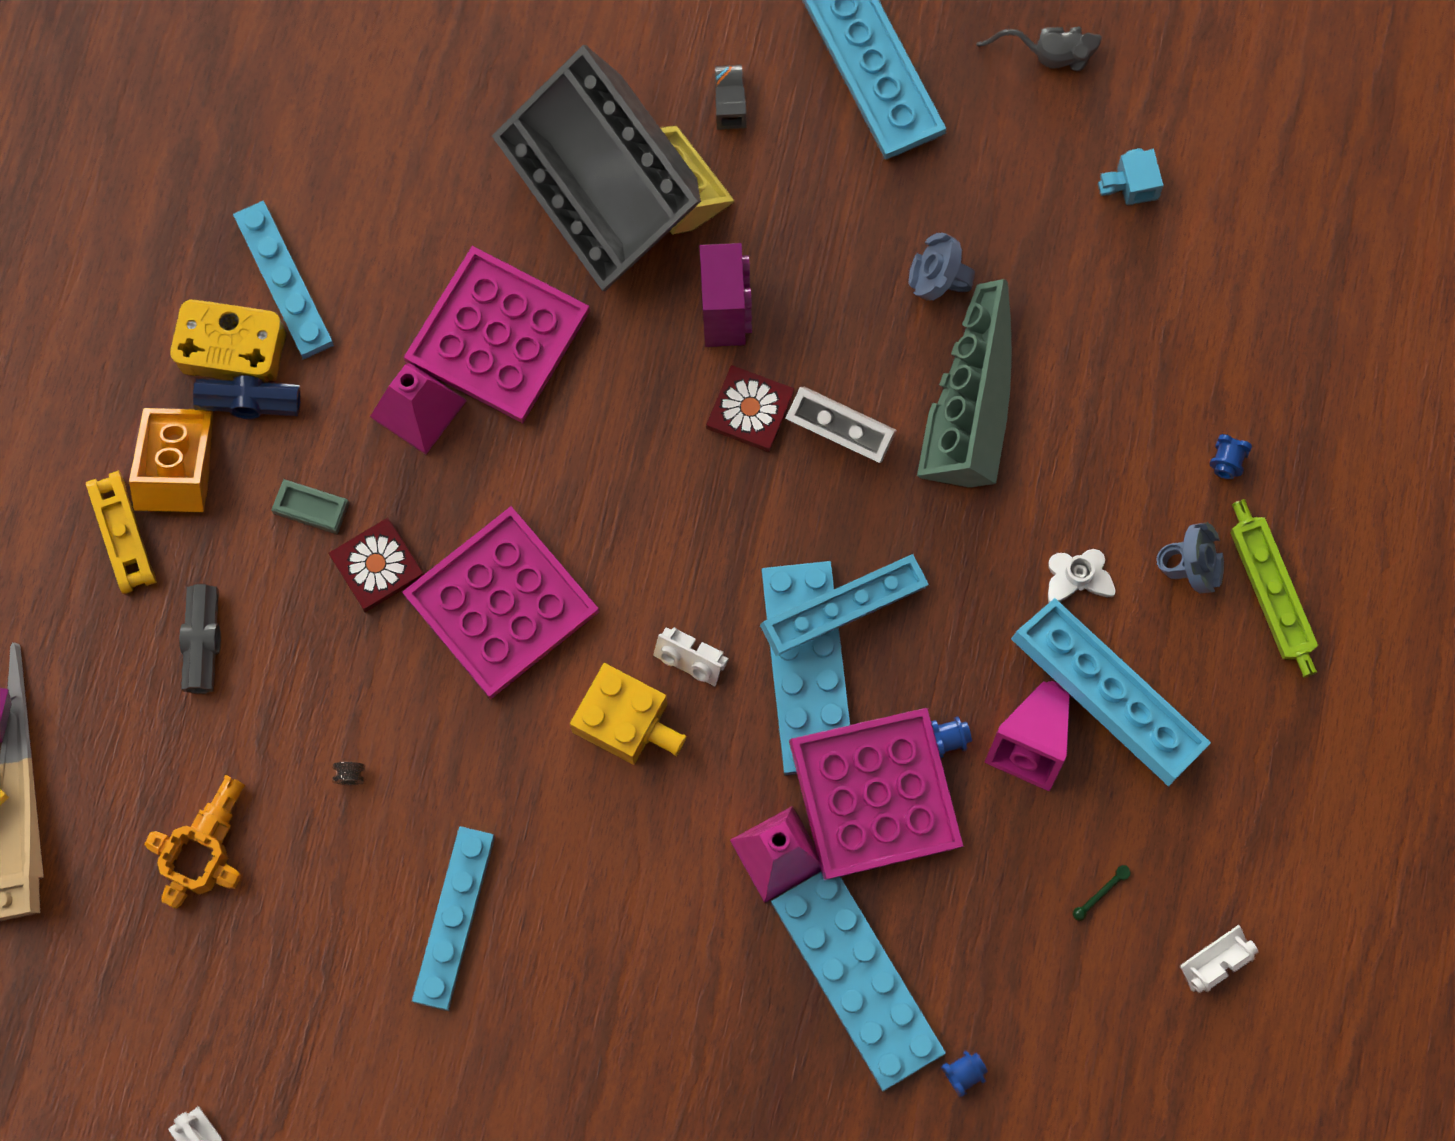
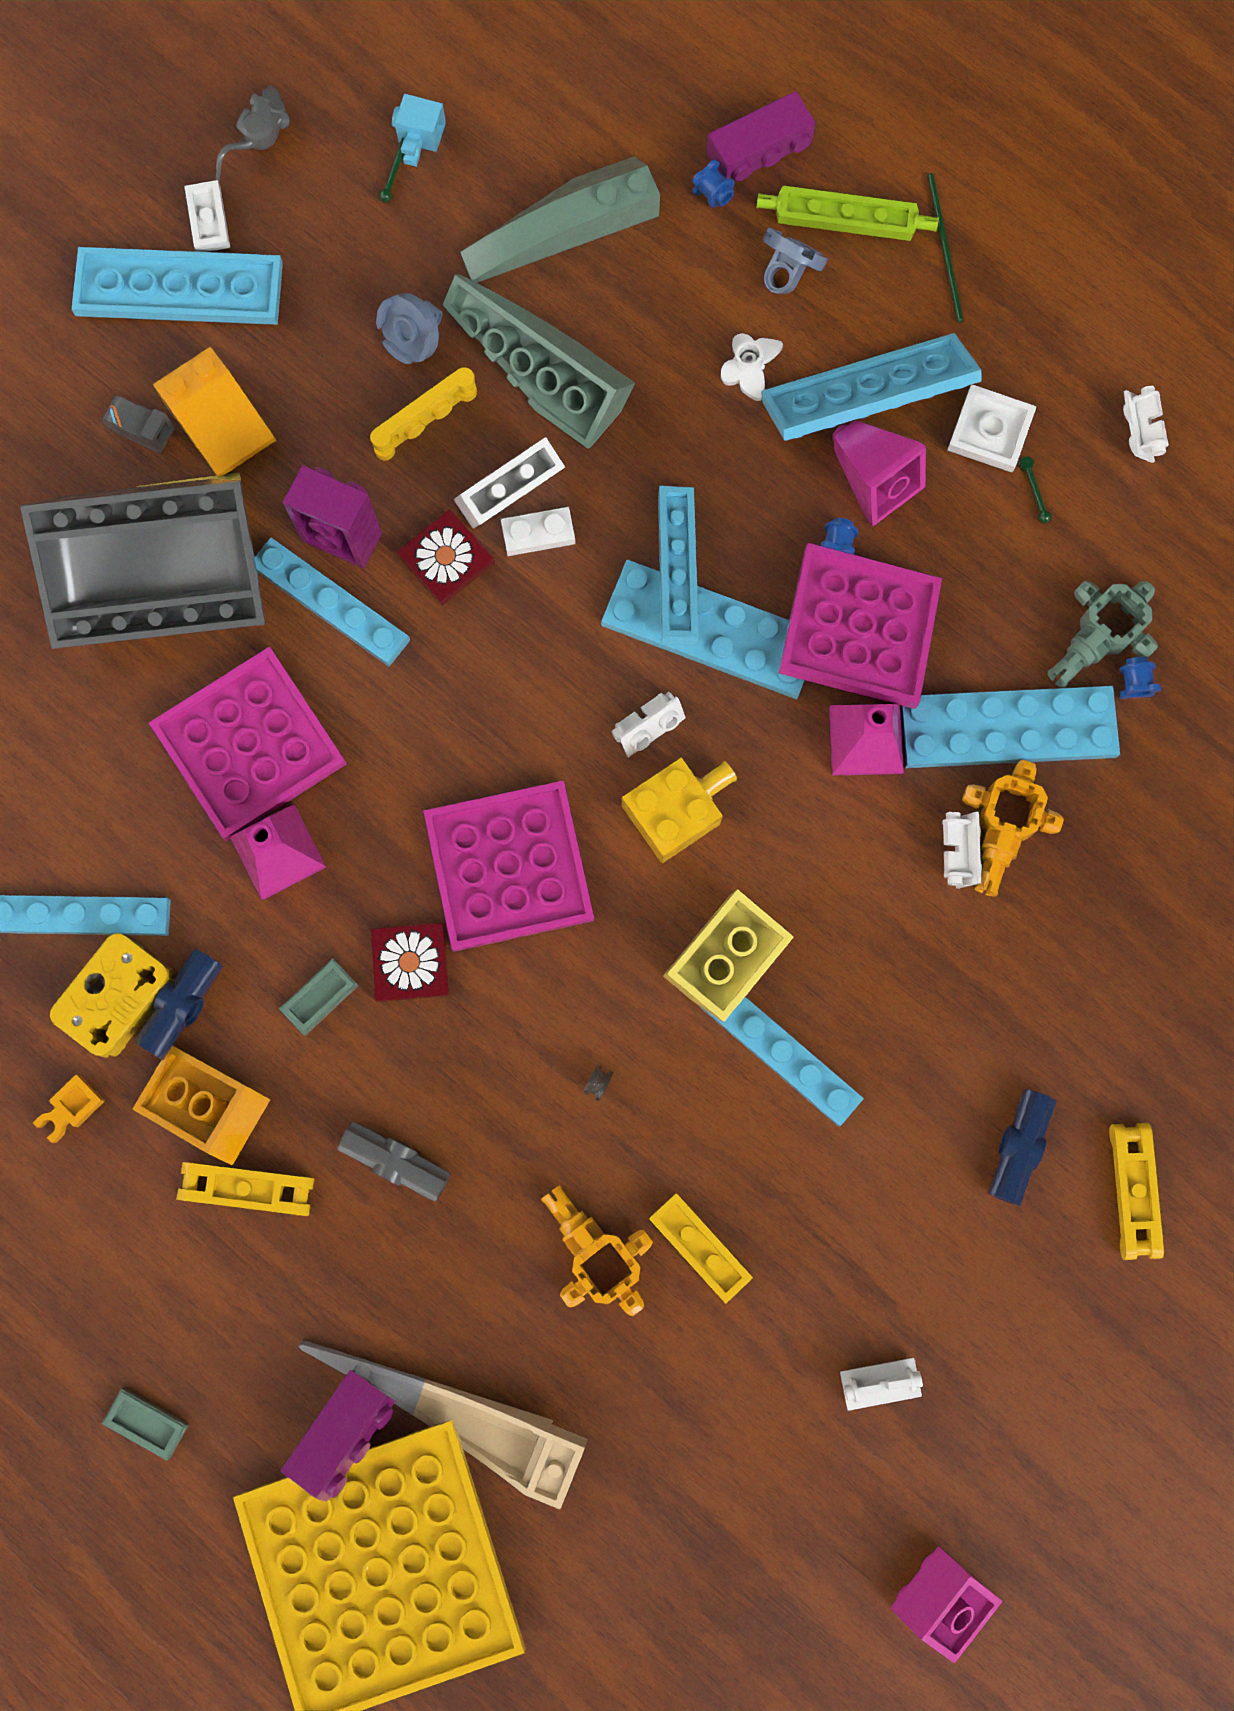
camera: 65 degrees left, 5 degrees up
(123, 360) = (72, 1105): none -> light orange plate
(248, 932) = (700, 1248): none -> yellow plate
(511, 825) = (728, 956): none -> light yellow slope
(658, 335) = (330, 602): none -> medium azure plate
(729, 982) = (964, 865): none -> white hinge
(743, 1018) = (1004, 839): none -> light orange piece
(772, 151) = (214, 412): none -> light orange slope
(817, 473) = (538, 531): none -> white plate
(860, 315) = (430, 406): none -> yellow plate
(949, 51) = (207, 216): none -> white plate
(977, 1014) = (1095, 640): none -> sand green piece
(1057, 183) = (385, 194): none -> dark green hinge
(1128, 348) = (567, 218): none -> sand green wedge
(1136, 822) = (991, 428): none -> white plate
(1295, 695) = (945, 248): none -> dark green piece
(1300, 475) = (761, 137): none -> magenta brick

